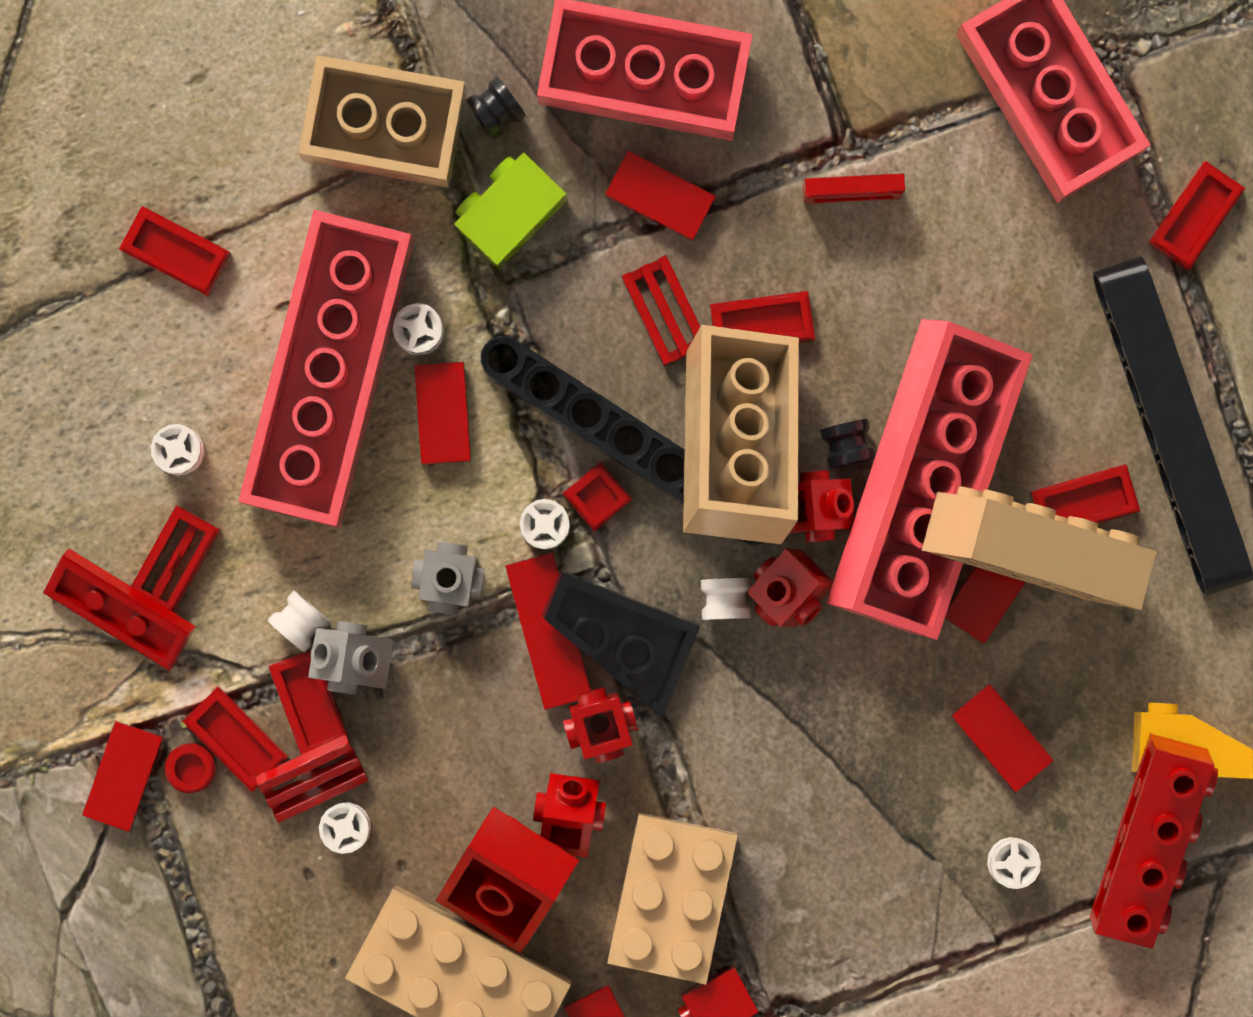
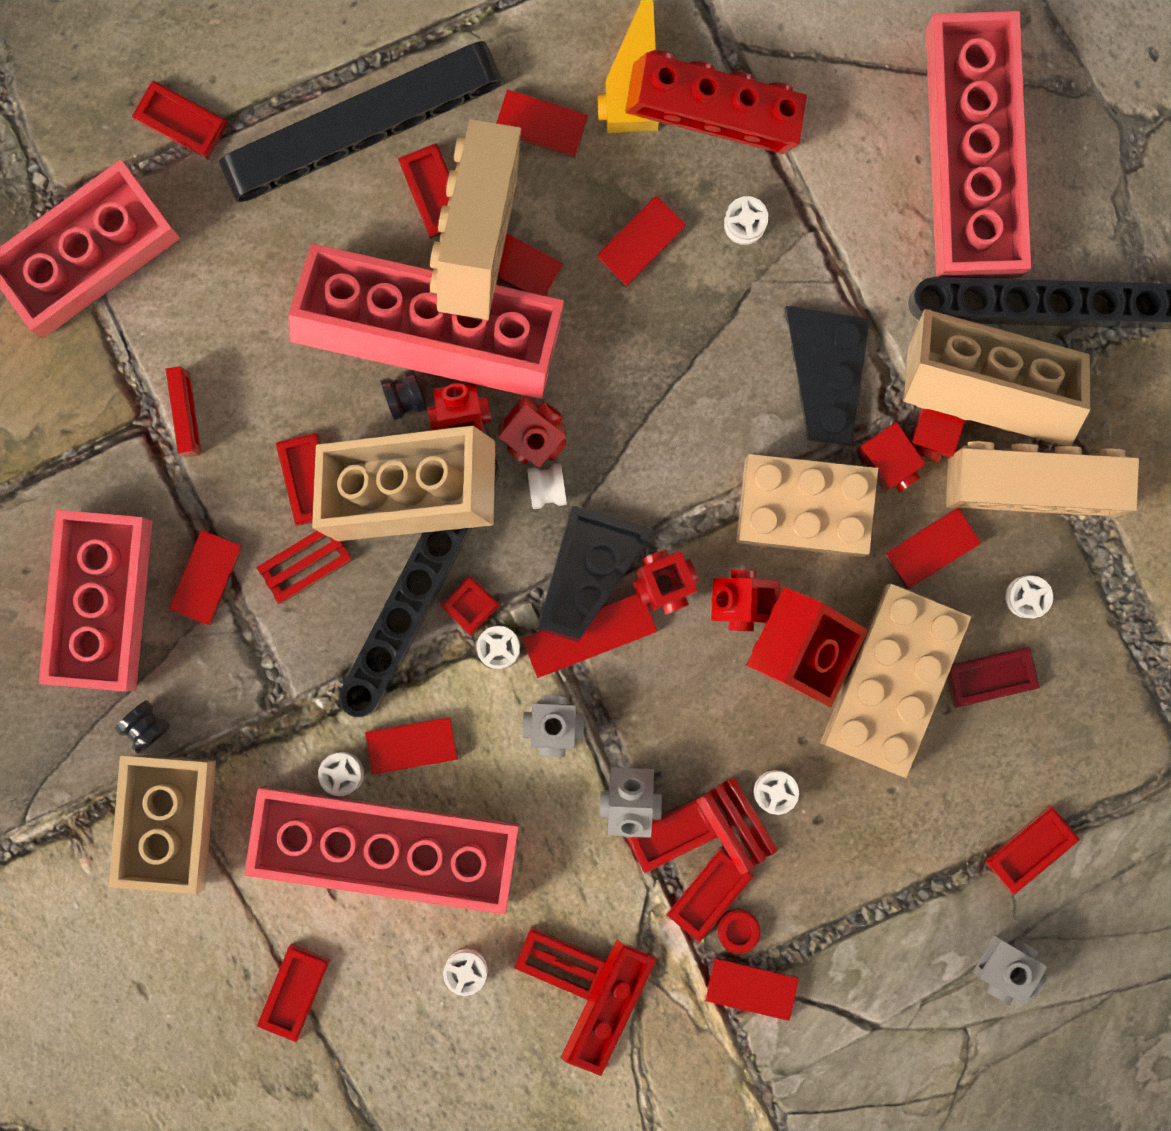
camera: 90 degrees left, 0 degrees up
(299, 621) = (603, 850): white wheel -> none
(509, 209) = (229, 705): lime brick -> none
(829, 942) = (829, 370): none -> black wing
(1152, 636) = (543, 123): none -> red tile

